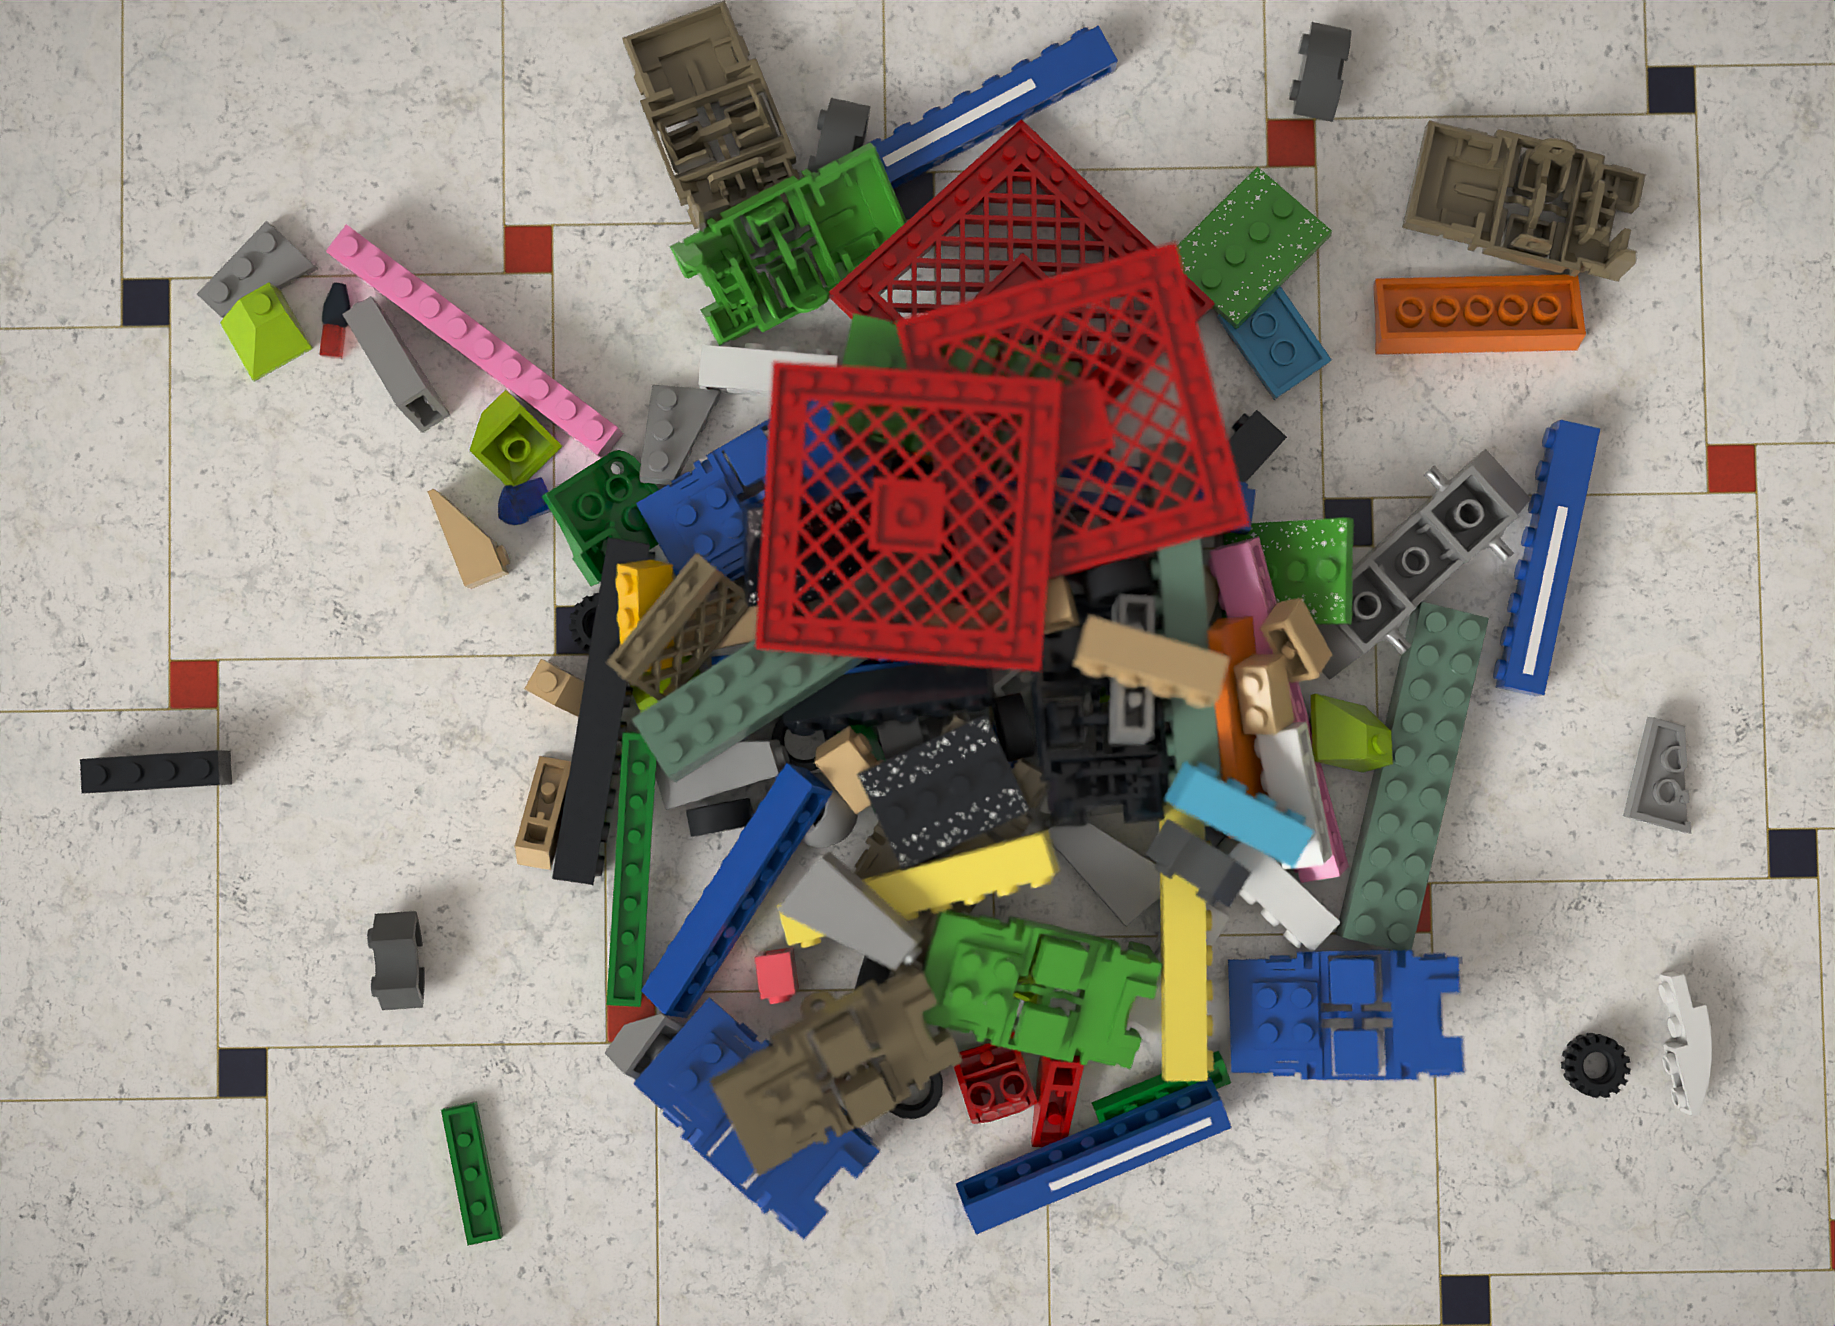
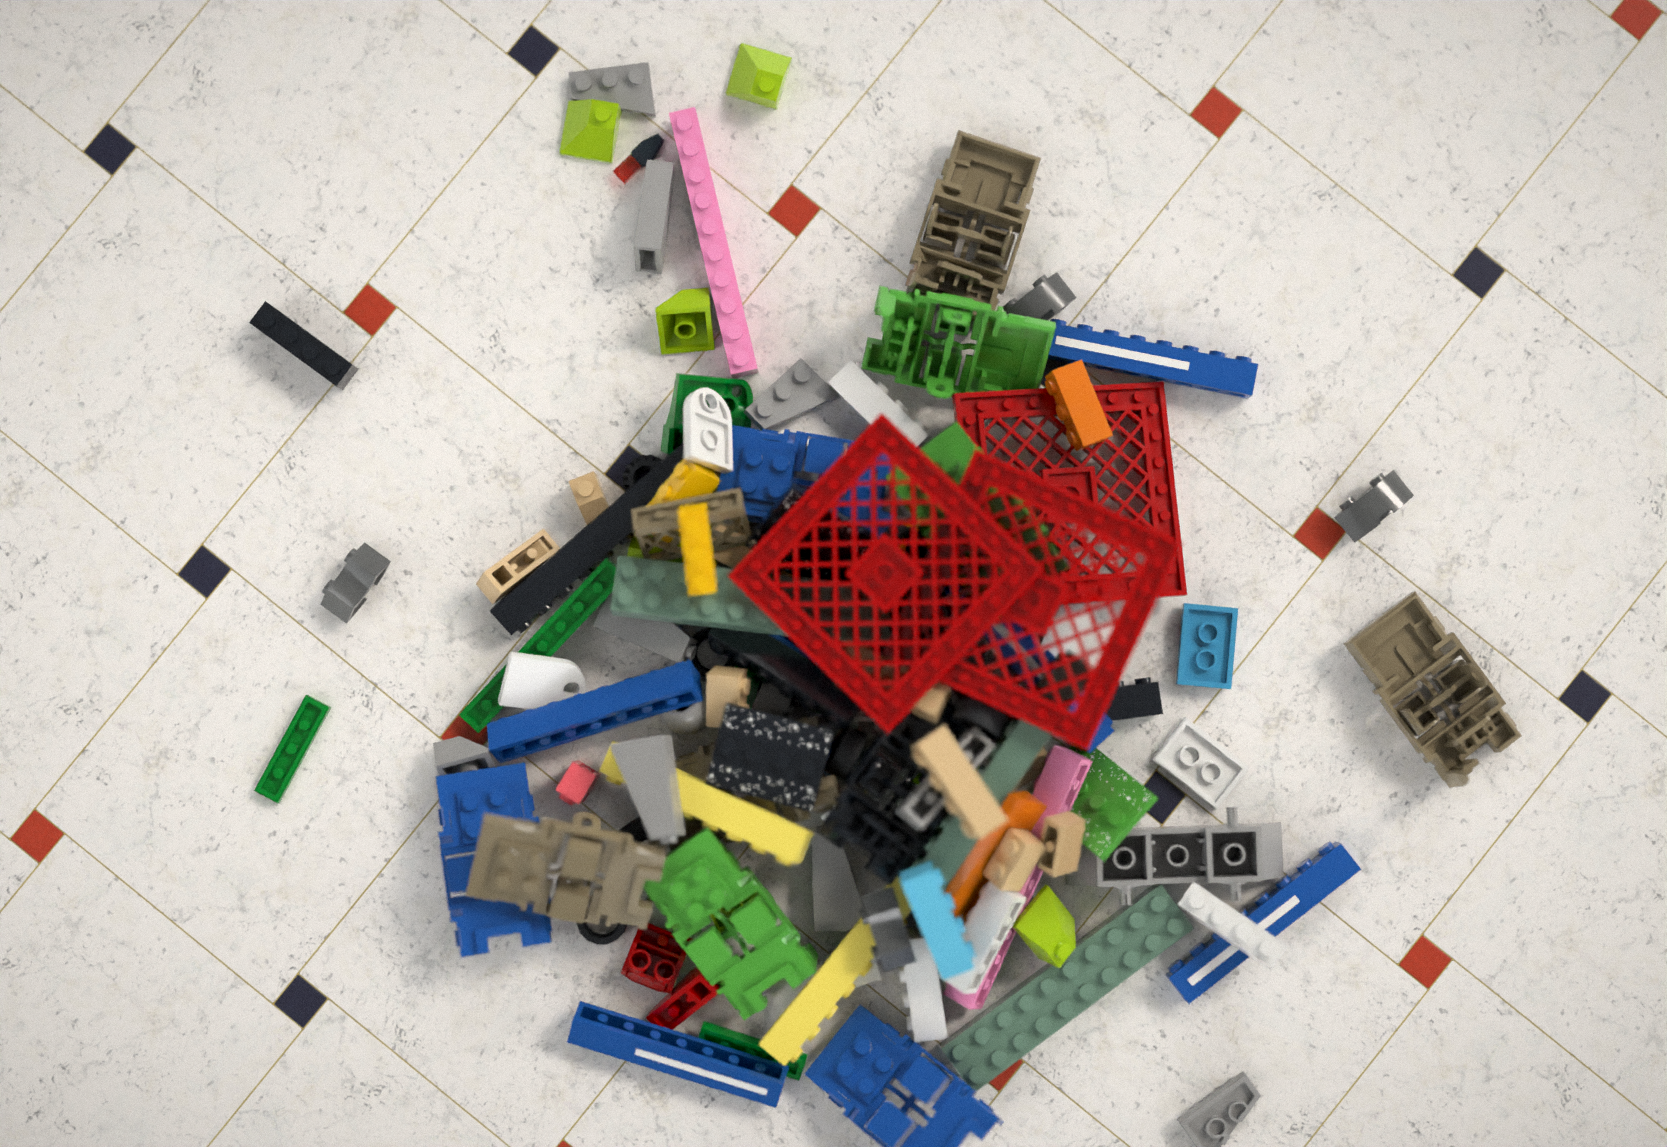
camera: 35 degrees right, 0 degrees up
(385, 147) = (758, 76): none -> lime slope
(473, 550) = (607, 369): tan slope -> none
(522, 502) = (661, 365): clear blue tile -> none
(619, 525) = (708, 431): none -> white tile
(656, 907) = (538, 680): none -> white tile
(703, 645) = (697, 549): none -> yellow brick
(719, 817) = (622, 658): black tyre -> none
(959, 205) = (1078, 405): none -> orange brick
(1250, 246) = (1238, 576): bright green plate -> none
(1361, 456) = (1200, 763): none -> white tile
(1478, 314) = (1346, 735): orange arch -> none
(1526, 584) = (1232, 926): none -> white brick

